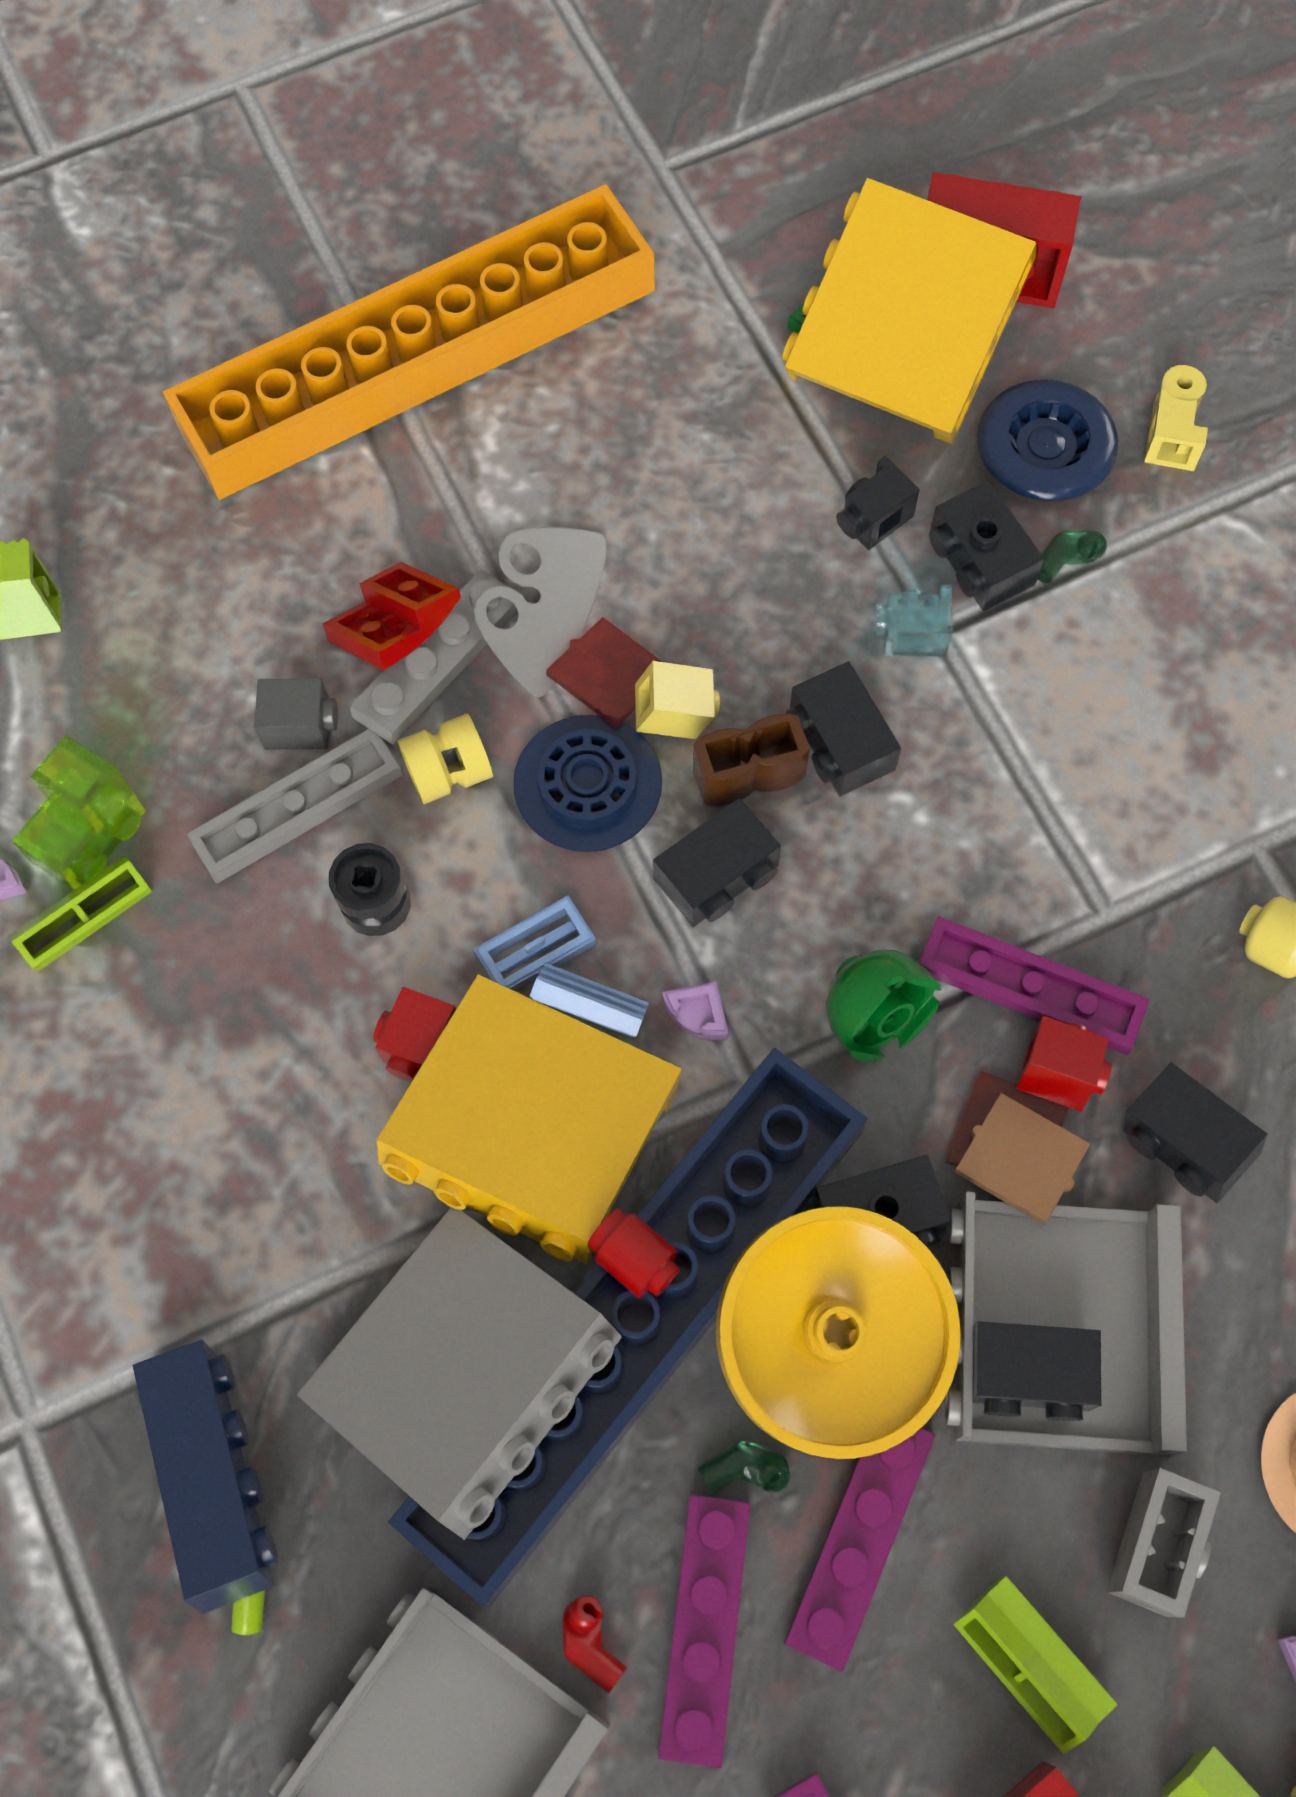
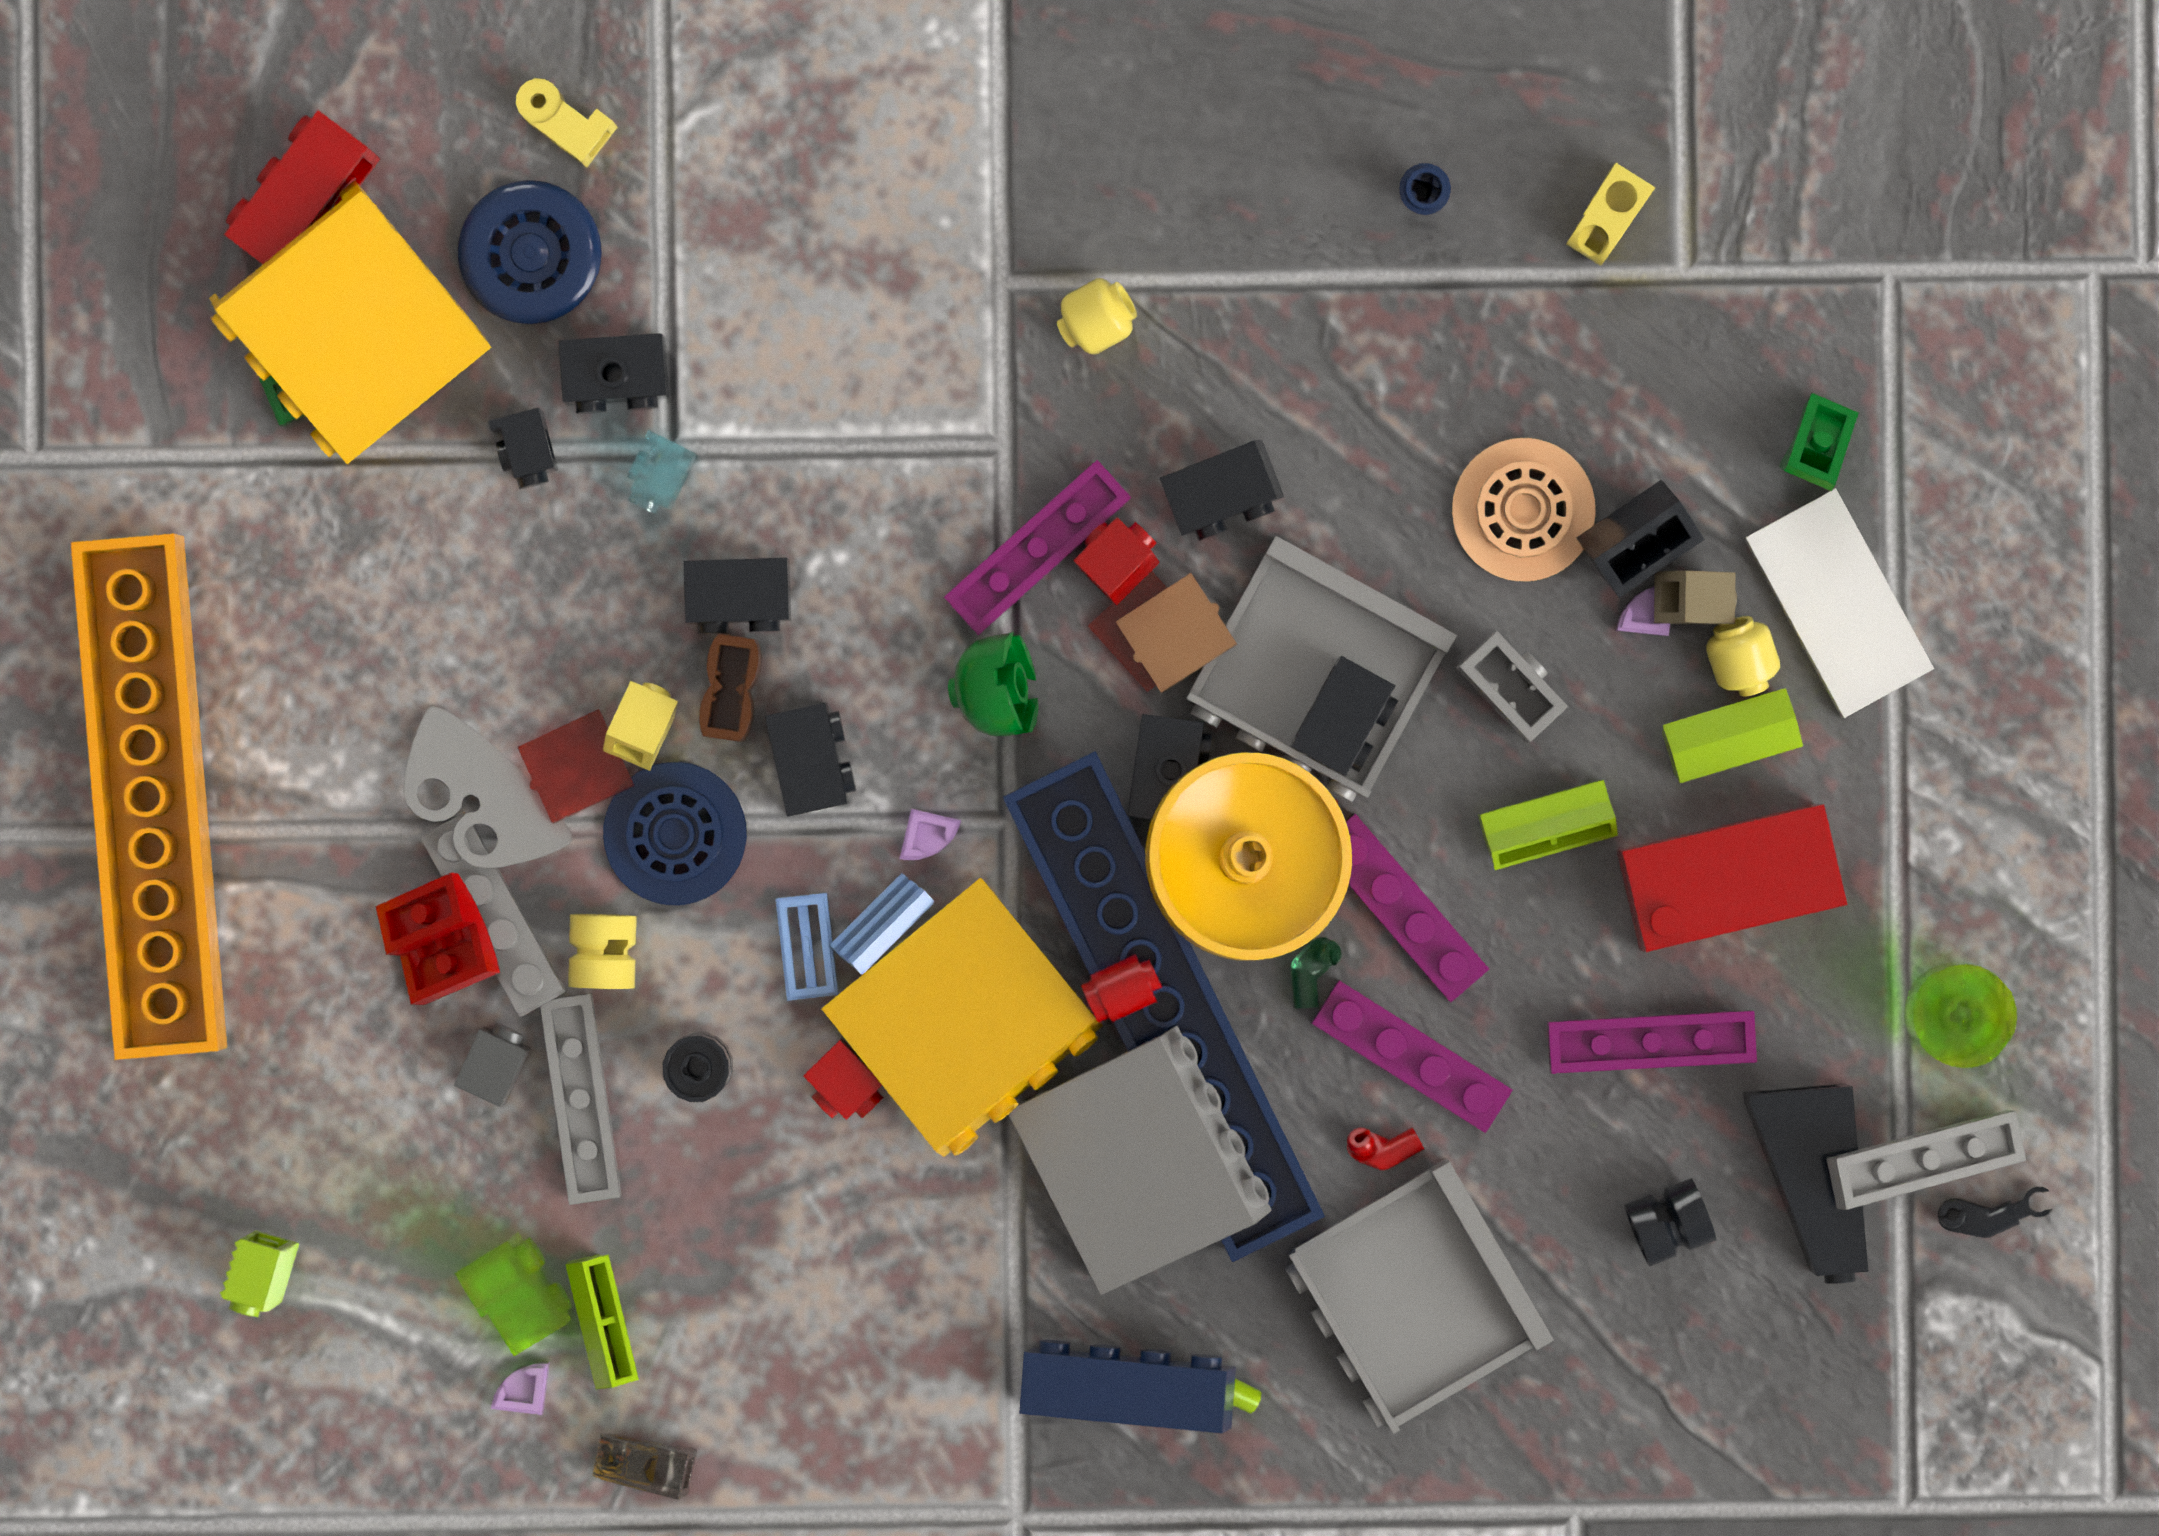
camera: 75 degrees left, 20 degrees up
(1071, 548) = (648, 291): clear green arm -> none

